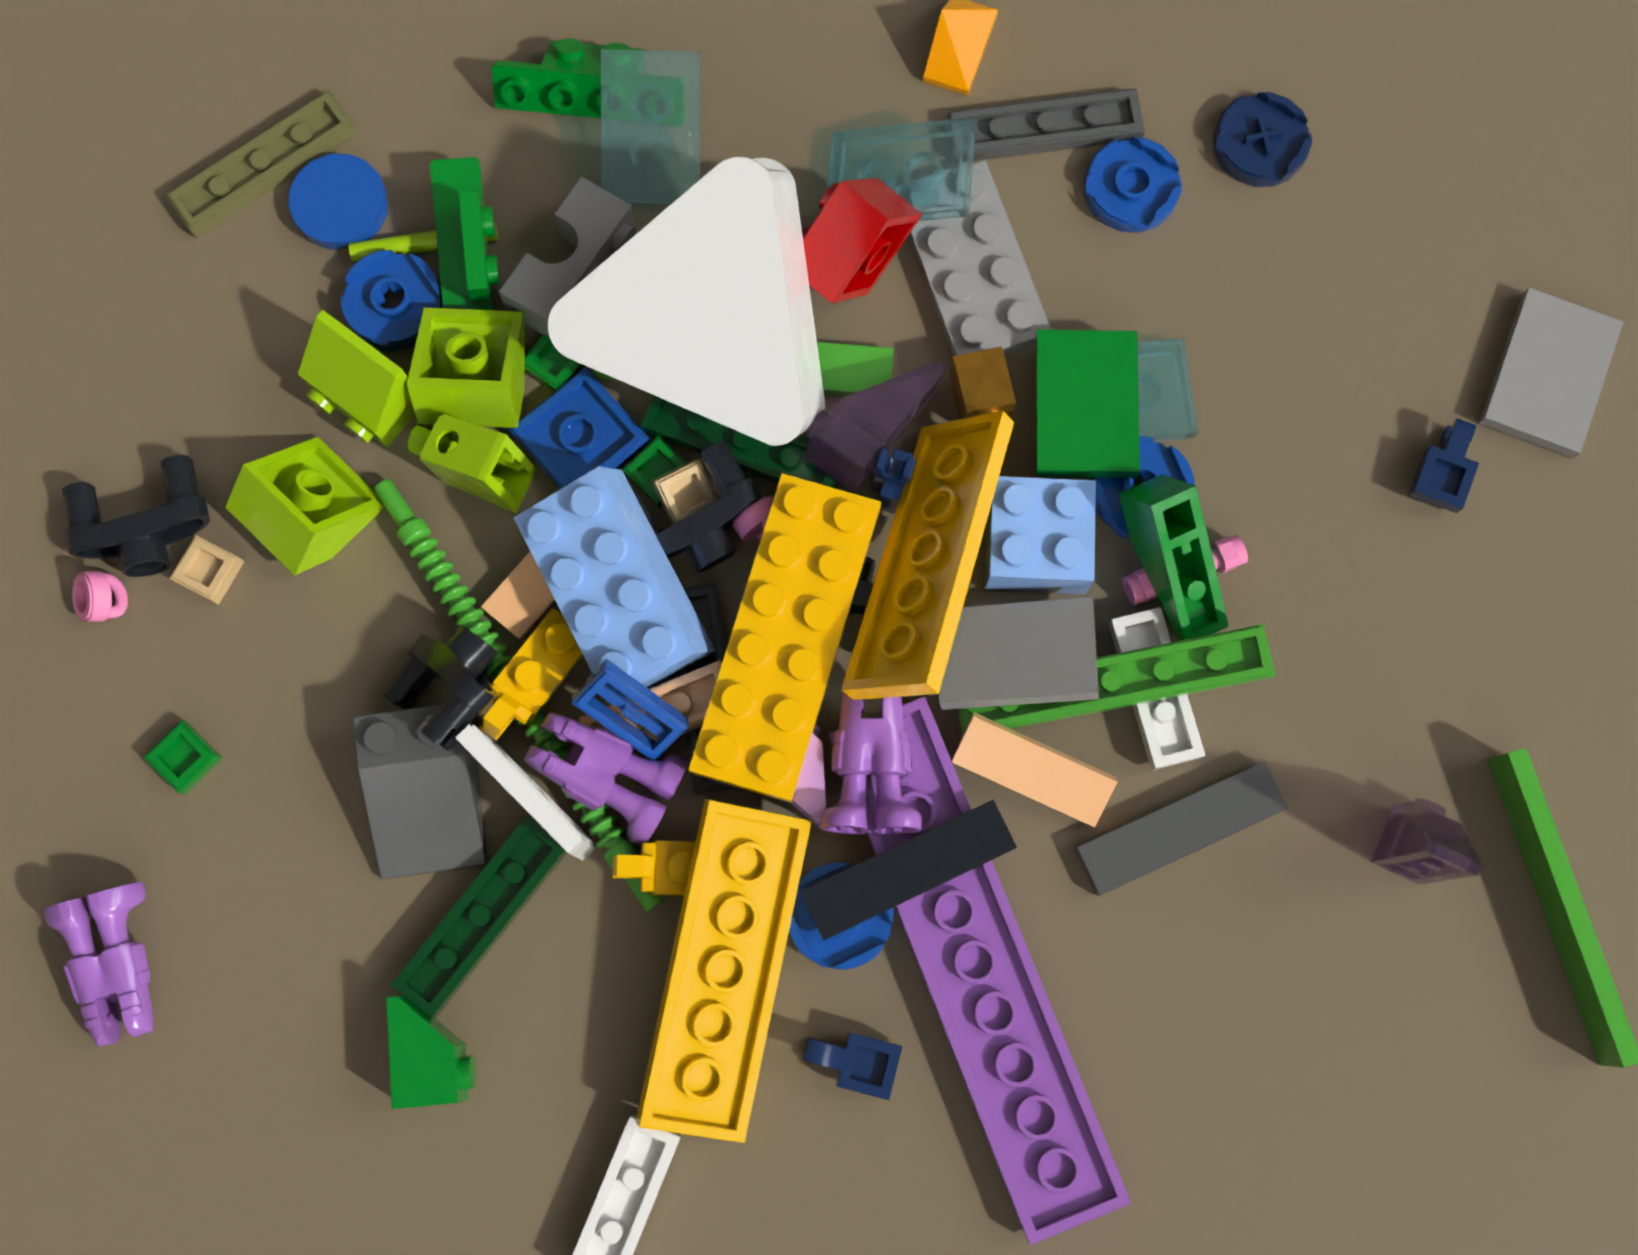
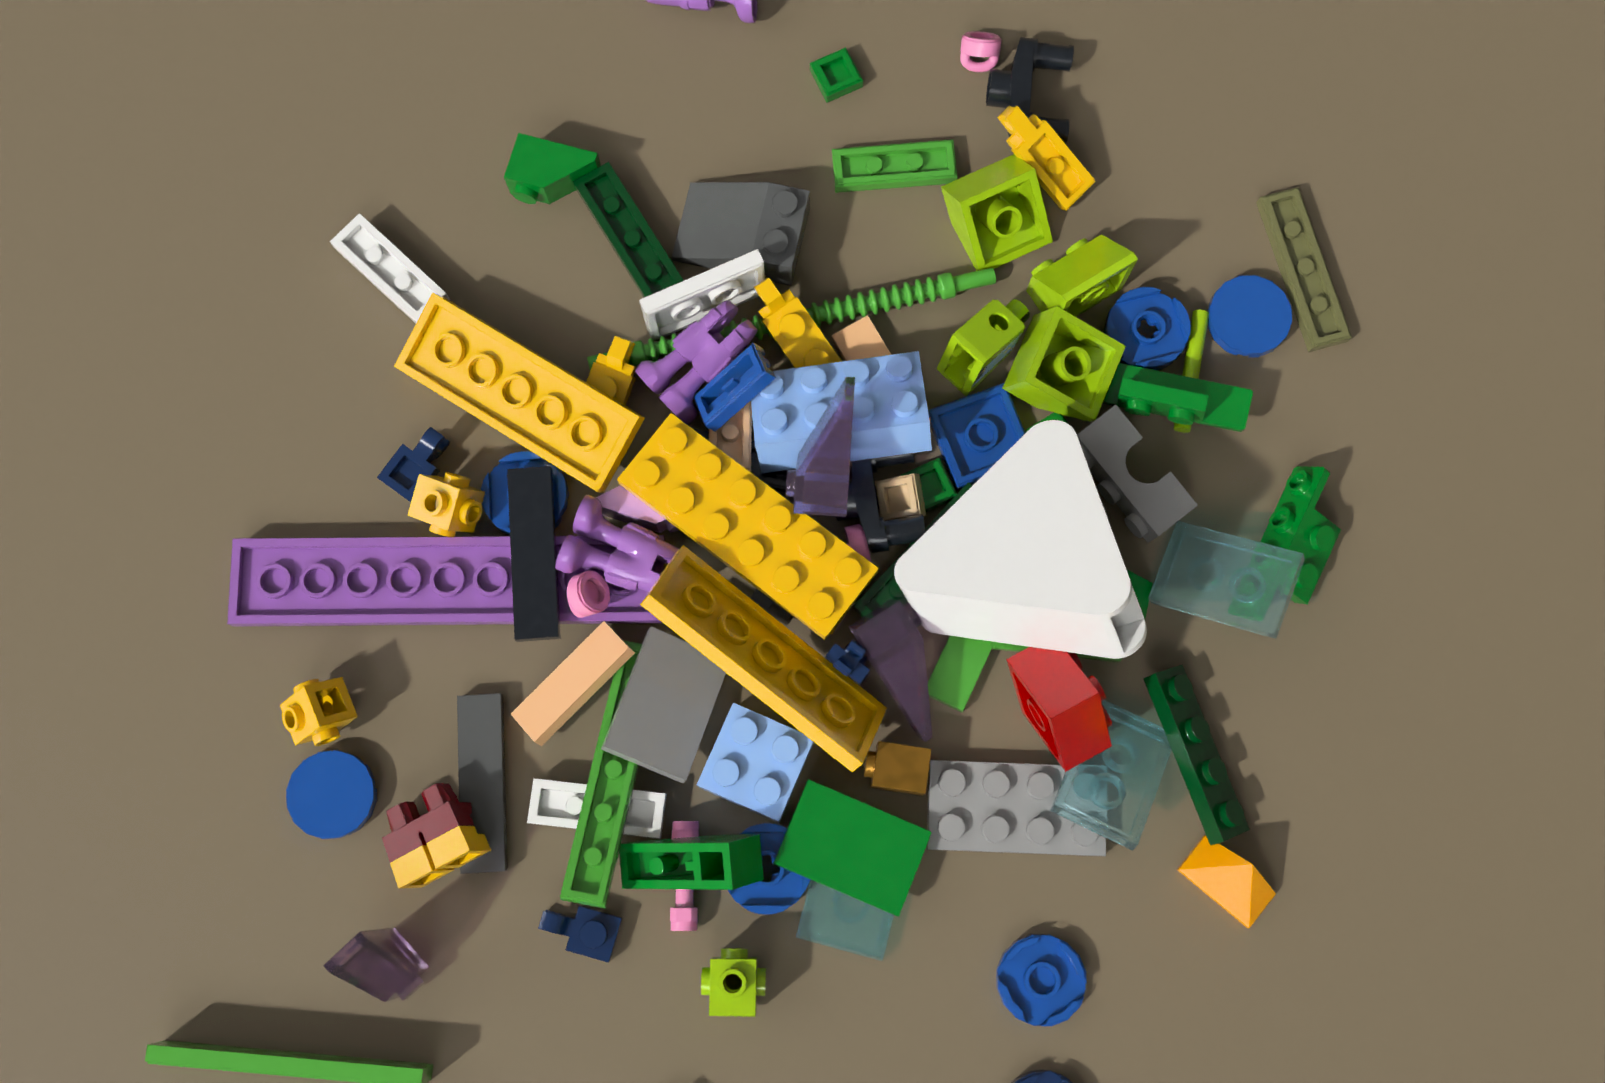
camera: 110 degrees right, 0 degrees up
(207, 569) = (974, 131): tan tile -> none
(212, 470) = (1043, 149): none -> yellow hinge
(281, 646) = (894, 166): none -> bright green tile
(461, 665) = (817, 275): black connector -> none
(681, 562) = (824, 460): none -> clear purple slope
(847, 104) = (1196, 754): none -> dark green plate
(889, 997) = (446, 503): none -> yellow brick
(933, 786) = (587, 594): none -> bright pink tile
(1054, 124) = (1122, 929): dark grey tile -> none
(1187, 1043) = (318, 711): none -> yellow brick
(1265, 993) = (331, 794): none -> blue tile
(1273, 845) = (433, 843): none -> hips
(1276, 471) = (729, 1001): none -> lime brick
(1290, 649) = (589, 933): none -> dark blue plate

